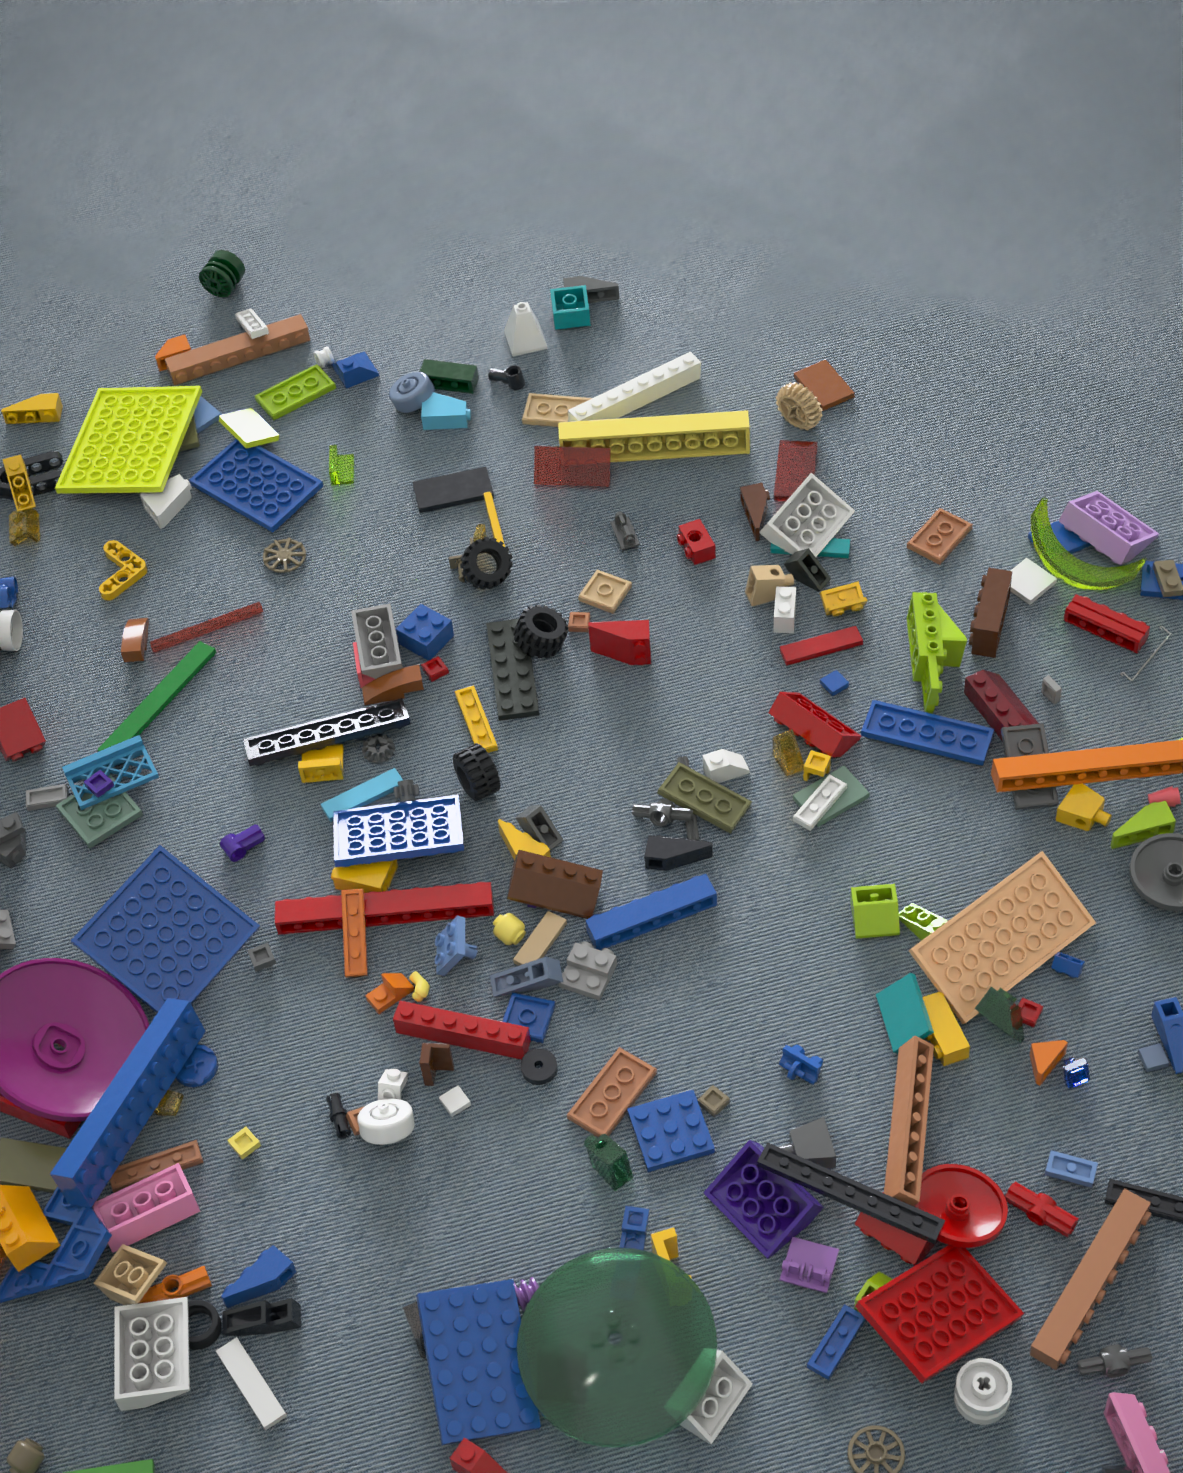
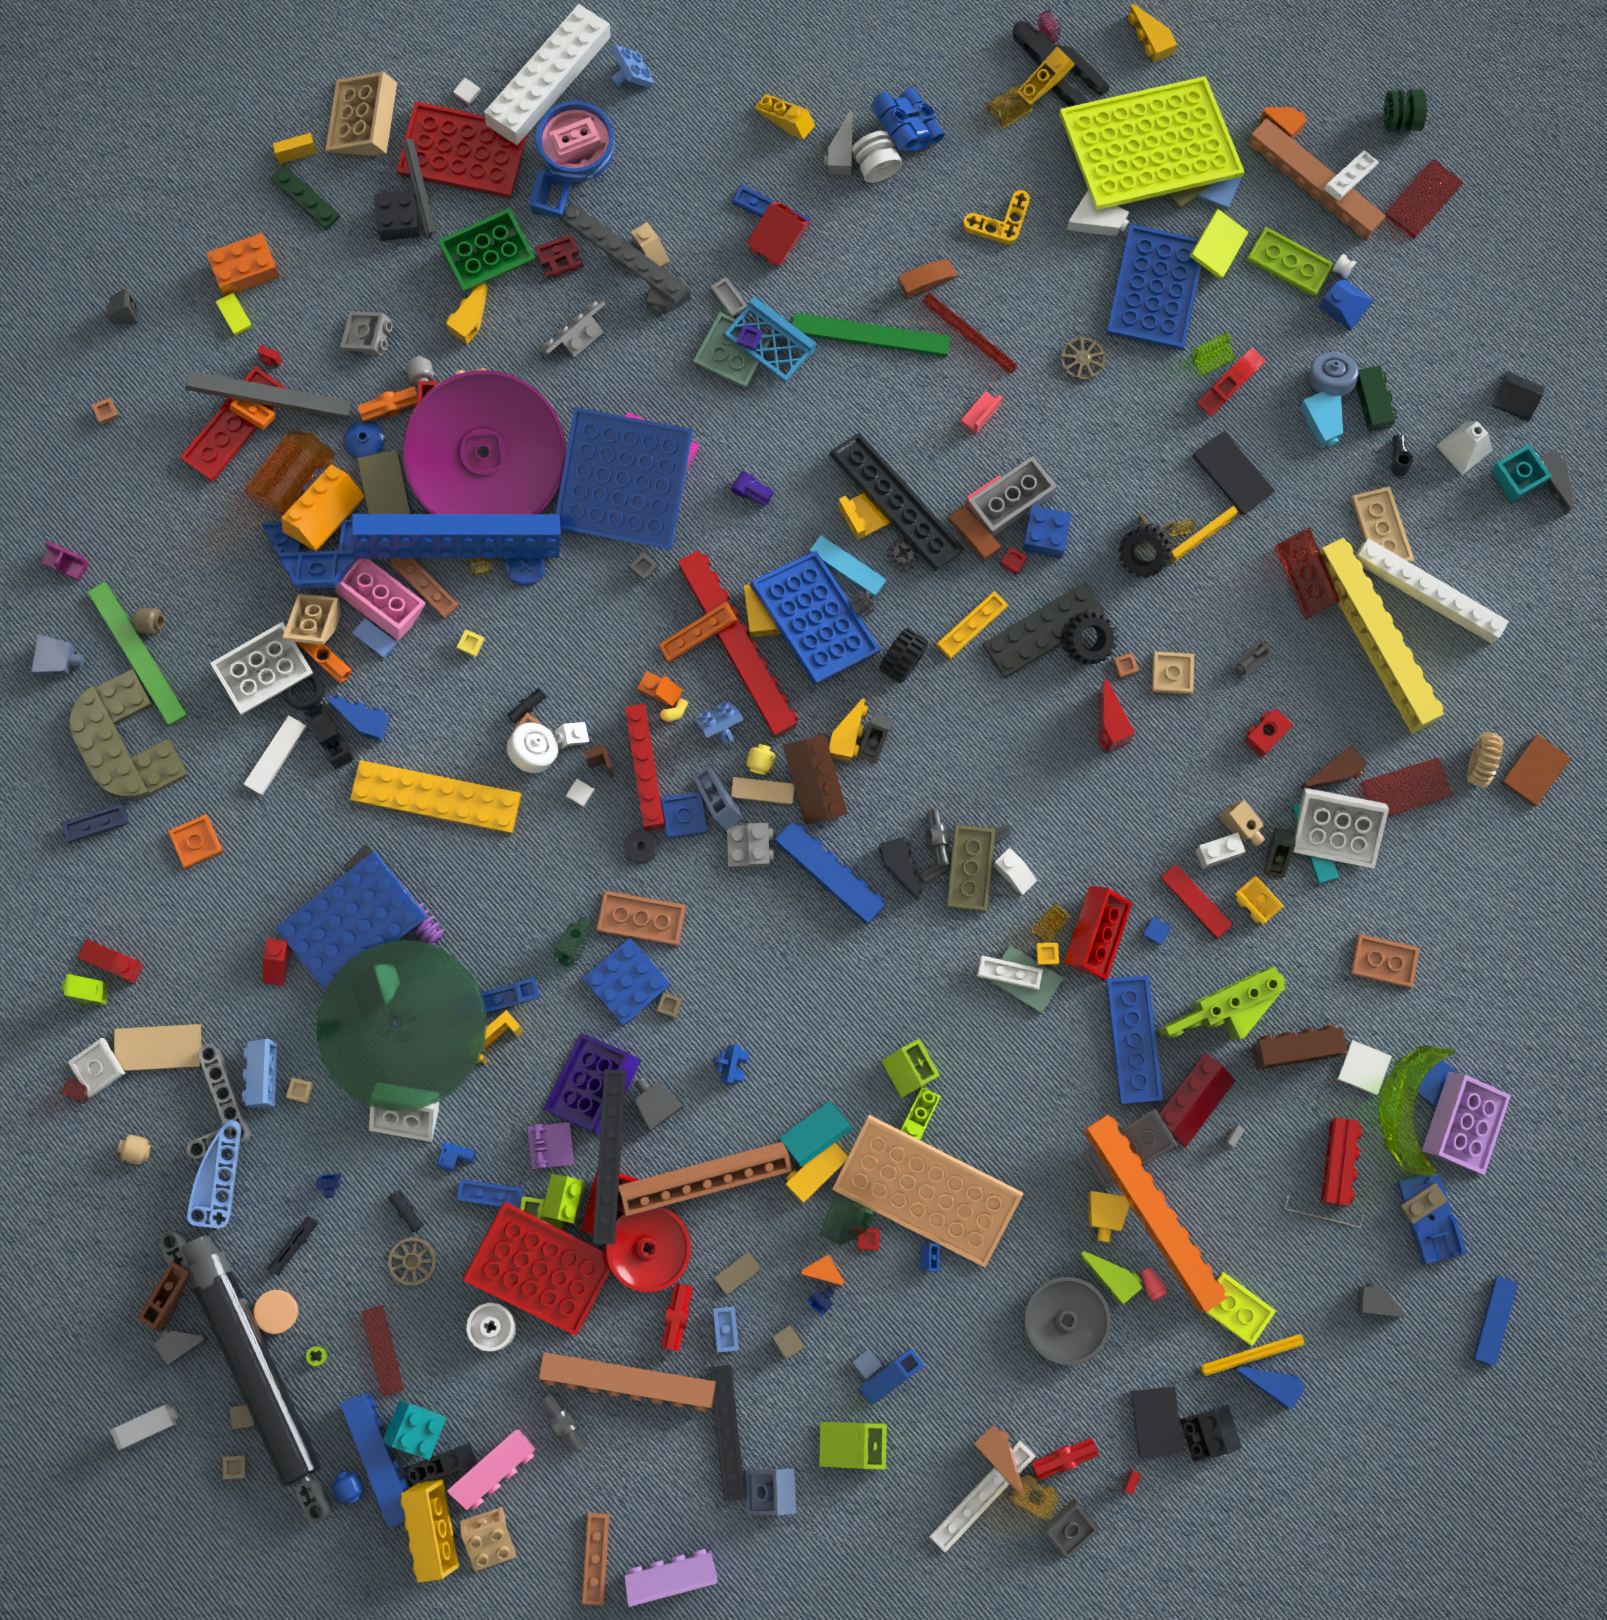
camera: 55 degrees right, 25 degrees up
(183, 1234) = (374, 638): none -> medium blue tile
(285, 643) = (981, 412): none -> coral panel
(301, 292) = (1423, 198): none -> clear red tile
(375, 461) = (1231, 382): none -> red slope
(383, 1240) = (436, 797): none -> yellow plate
(505, 291) = (1518, 396): none -> black slope
(776, 1366) = (451, 1154): none -> blue piece
(818, 1436) = (405, 1211): none -> black pin
(874, 1259) = (564, 1199): none -> lime slope
(1016, 1139) = (737, 1273): none -> dark tan tile
(1106, 1116) = (788, 1342): none -> dark tan panel

